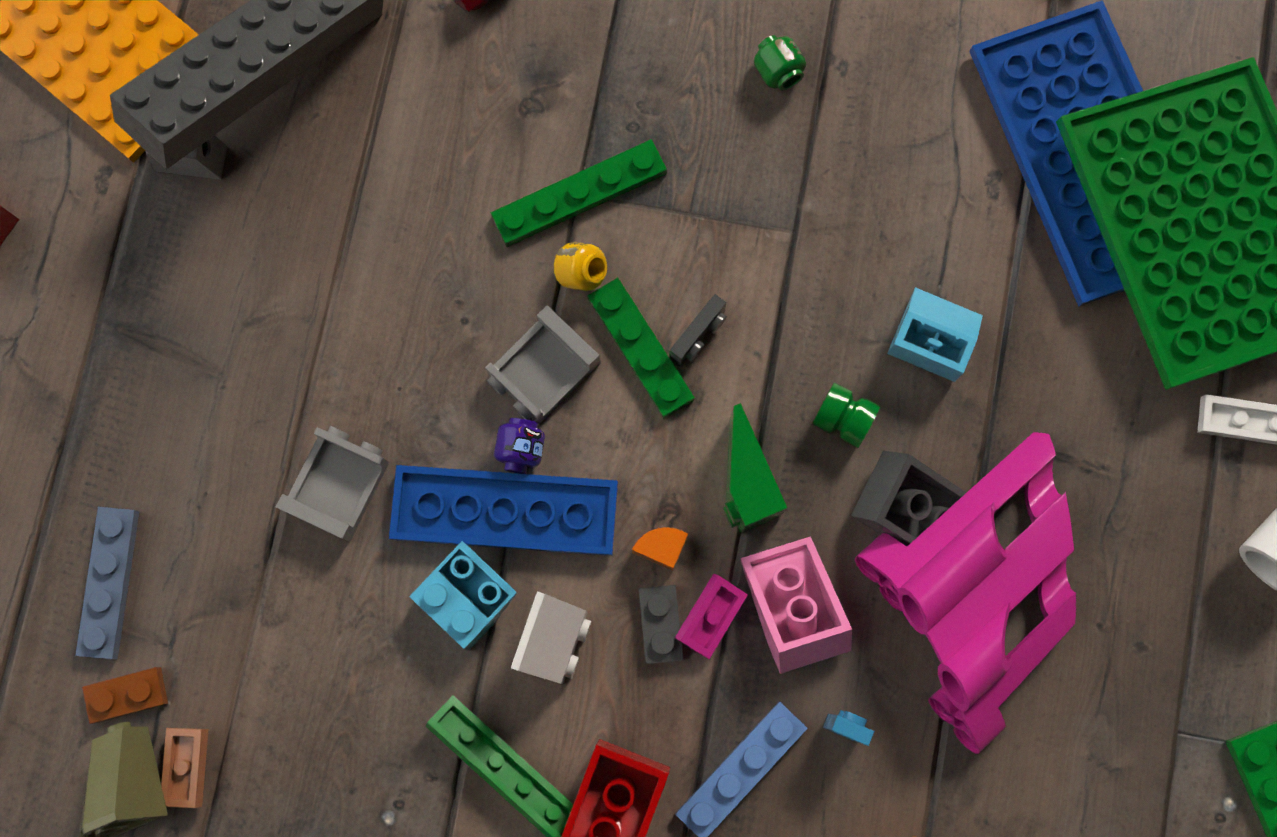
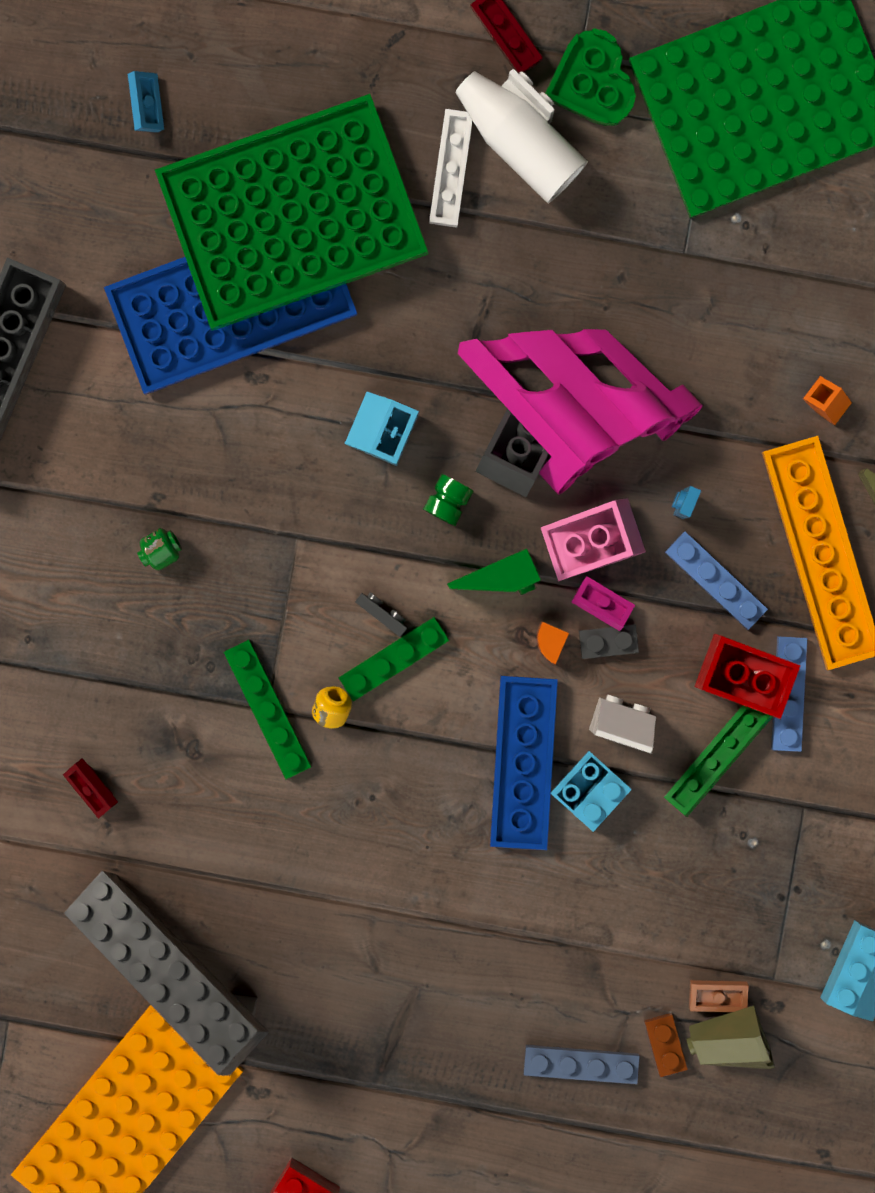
camera: 95 degrees left, 10 degrees up
(335, 483) = (504, 893): light grey panel -> none
(519, 445) = (474, 751): dark purple head -> none
(543, 366) = (411, 736): light grey panel -> none

